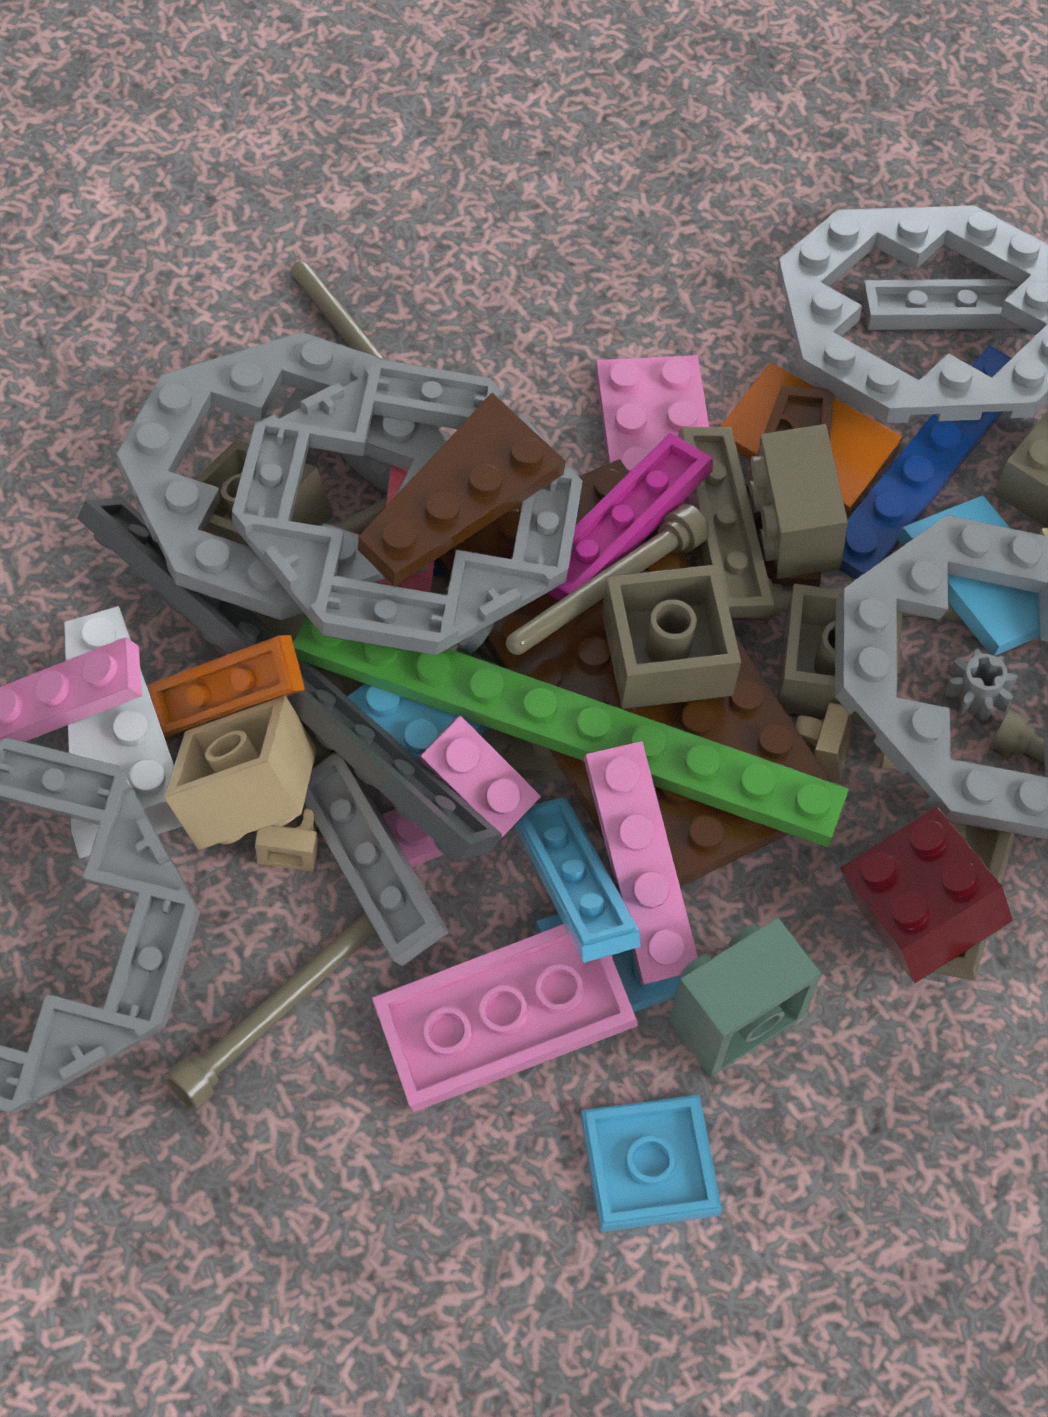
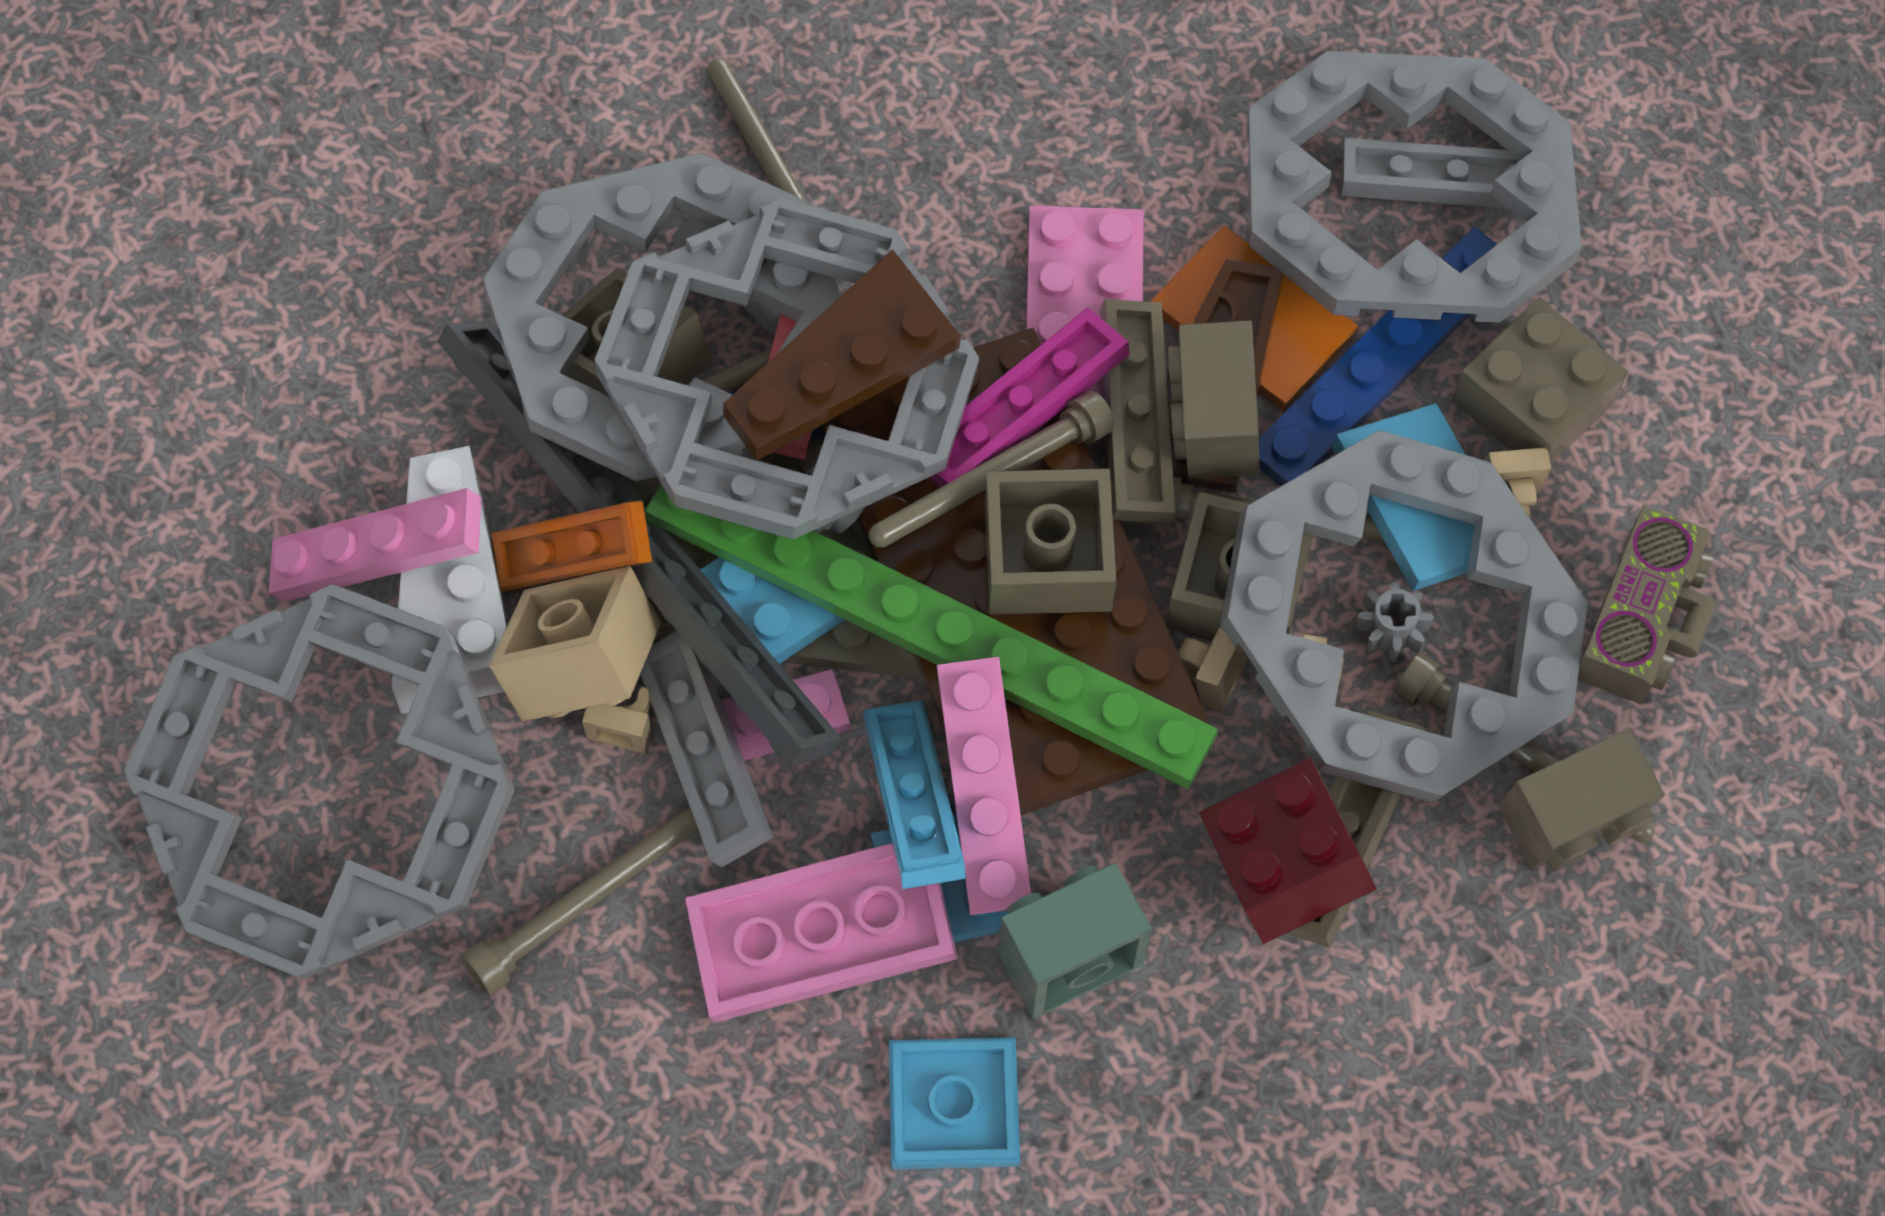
camera: 10 degrees right, 5 degrees up
(479, 775) = (828, 672): bright pink plate -> none

